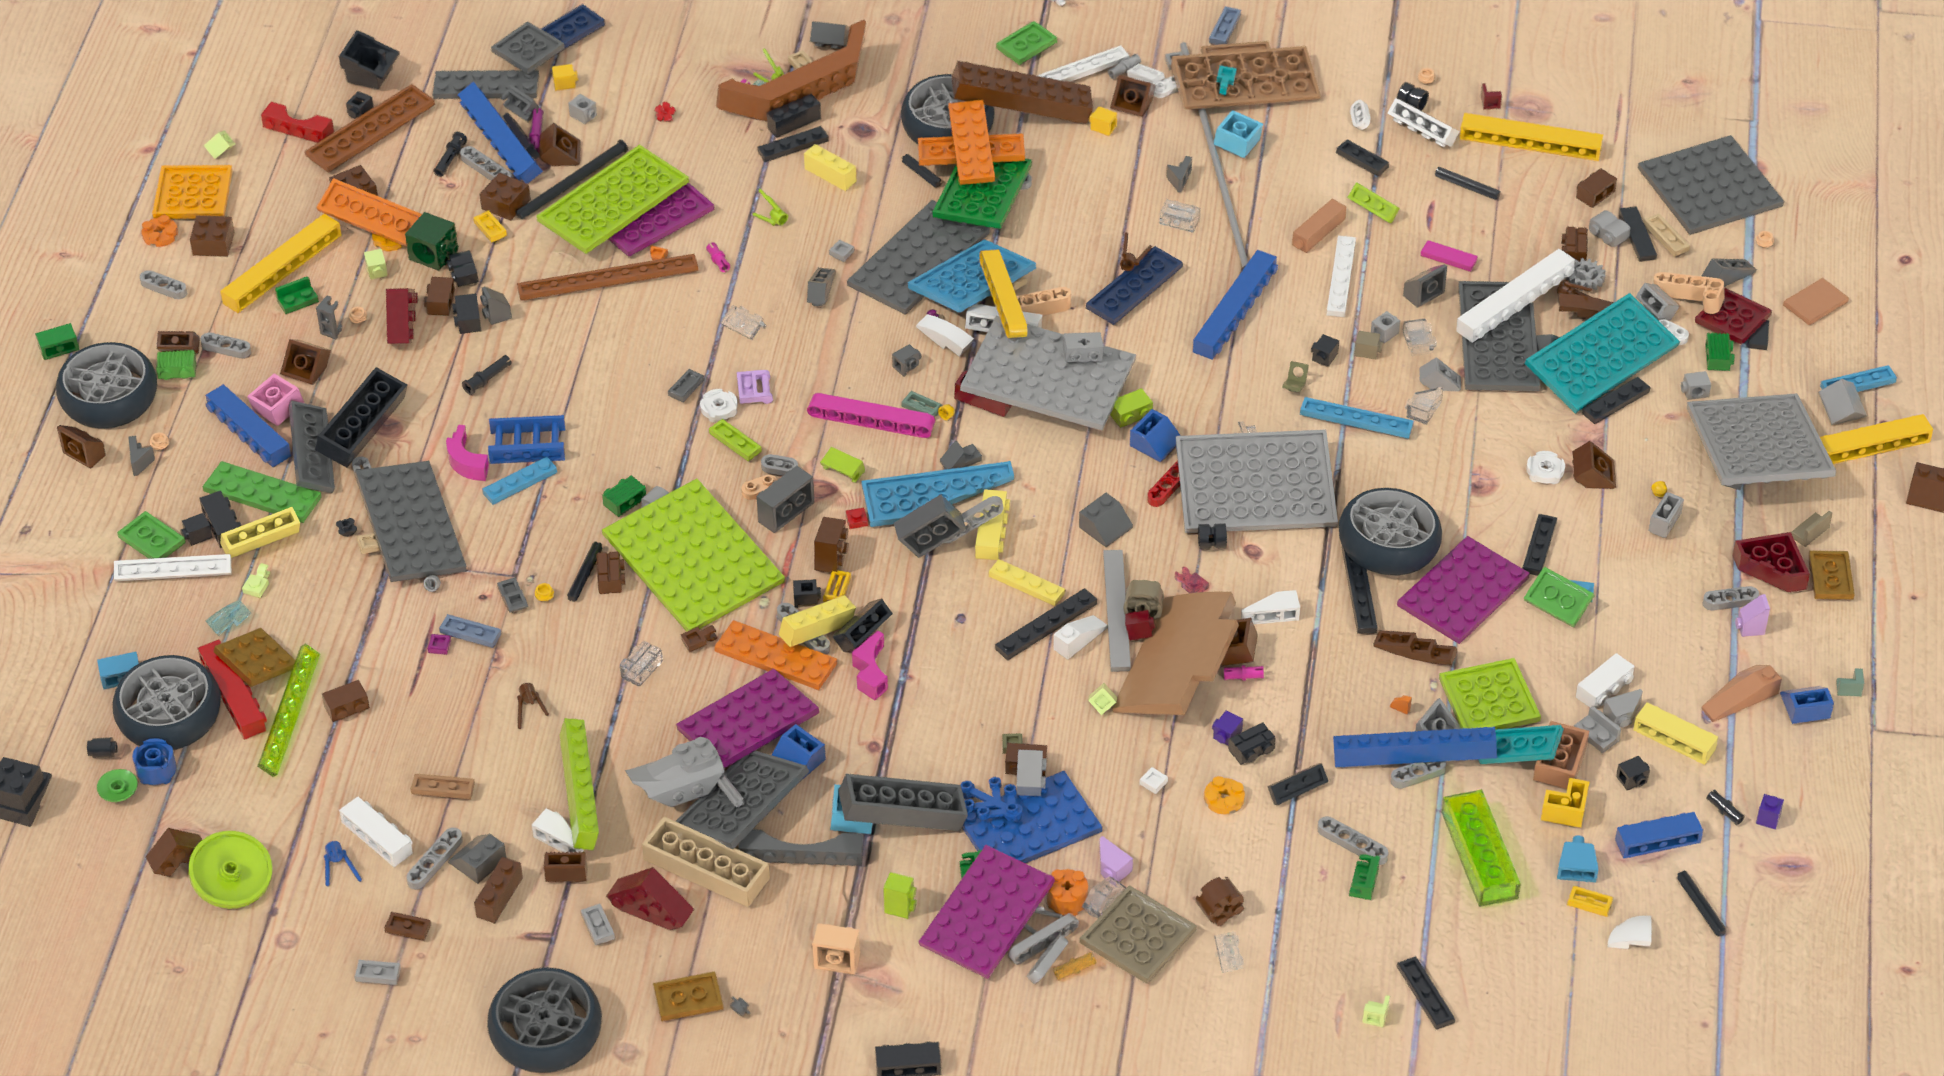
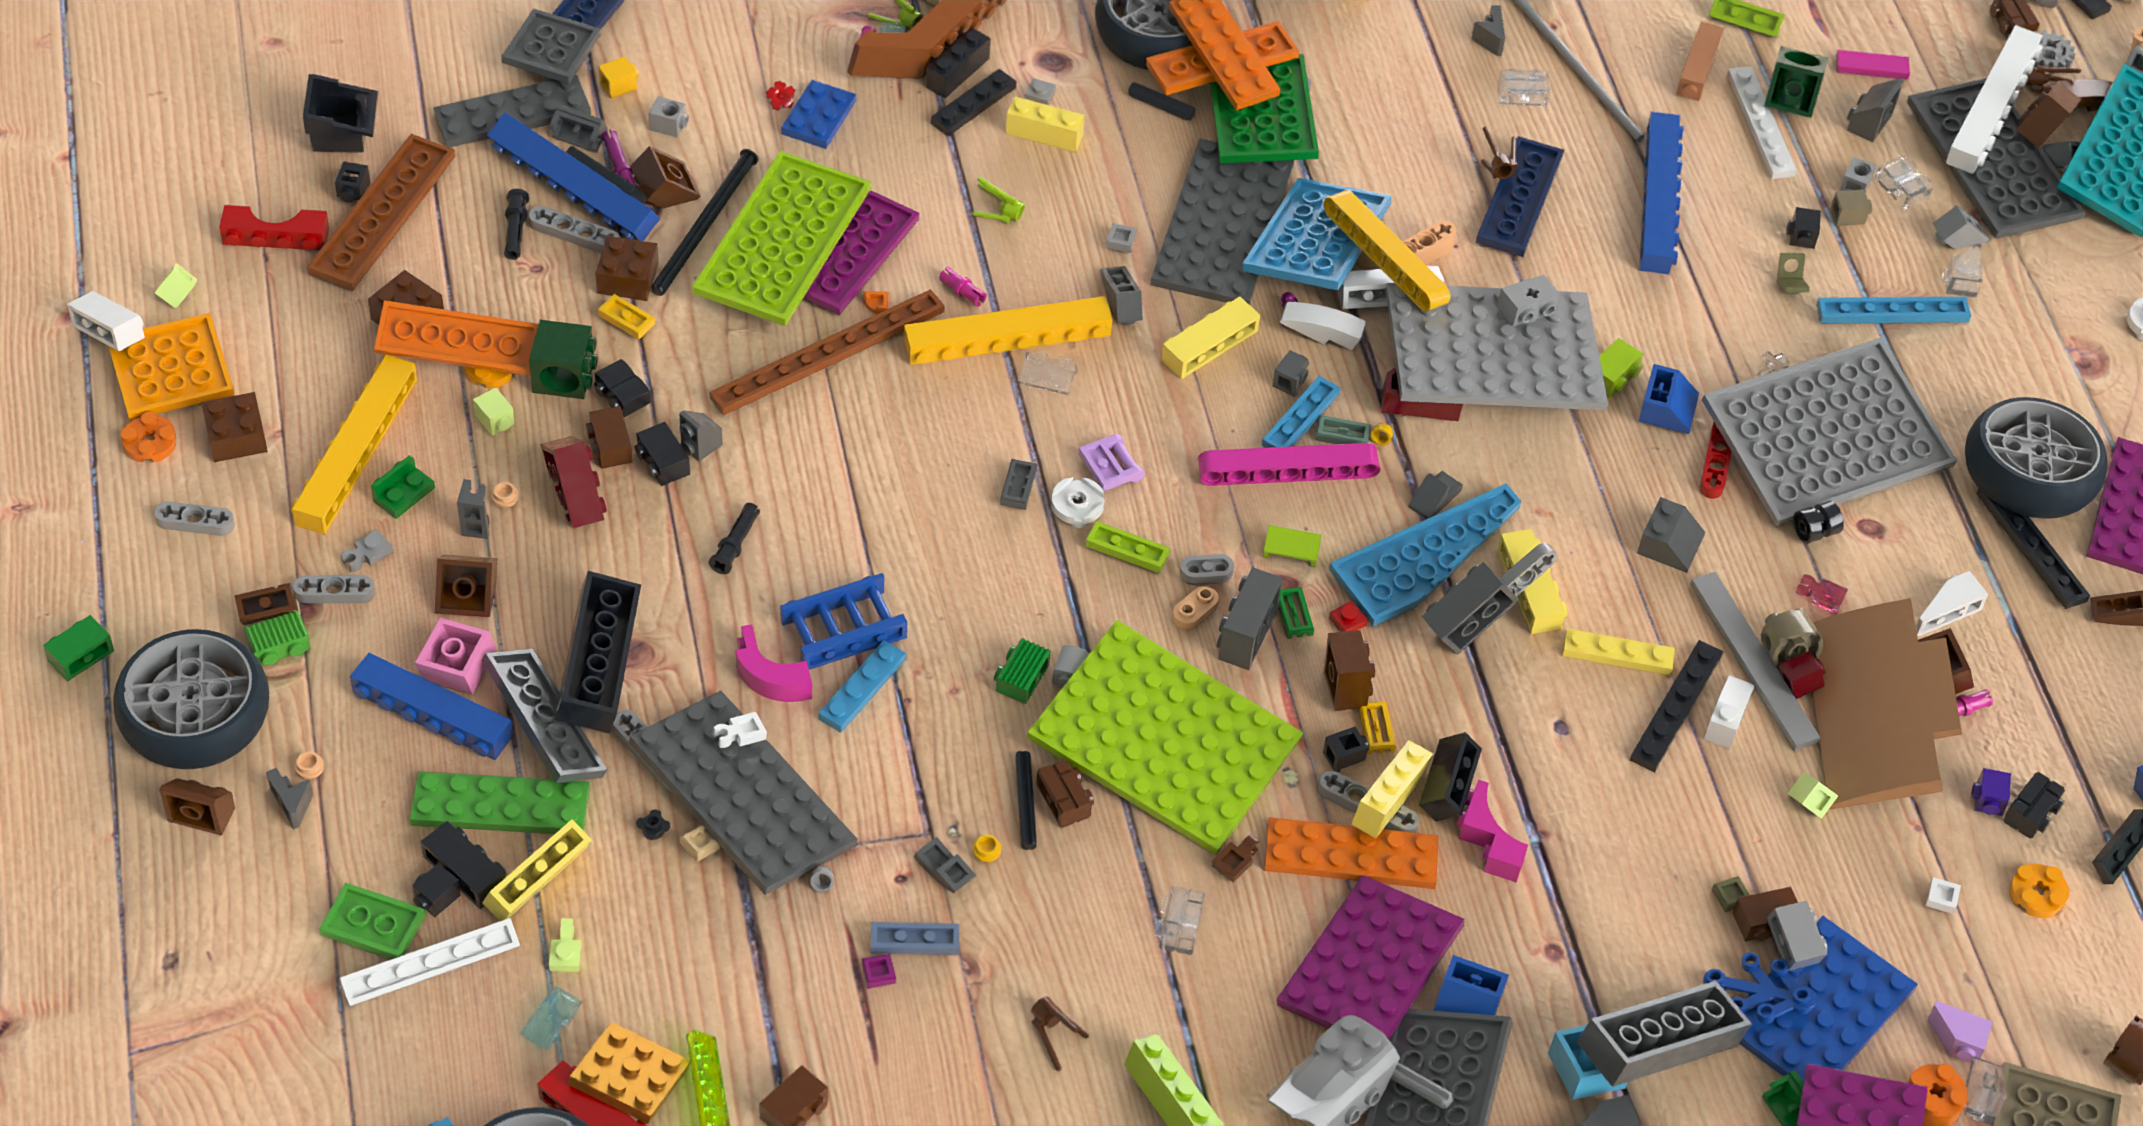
camera: 25 degrees left, 5 degrees up
(164, 154) = (106, 320): none -> white brick
(258, 327) = (368, 548): none -> light grey plate
(425, 483) = (744, 729): none -> white plate
(685, 129) = (818, 114): none -> blue plate
(732, 290) = (1007, 330): none -> yellow brick
(816, 502) = (1297, 629): none -> green tile
(841, 147) = (1040, 91): none -> light grey plate
(864, 325) = (1210, 337): none -> light yellow brick
(899, 387) = (1302, 414): none -> dark azure plate
(1373, 252) = (1796, 81): none -> dark green brick
(1546, 313) = (2047, 113): none -> reddish brown brick

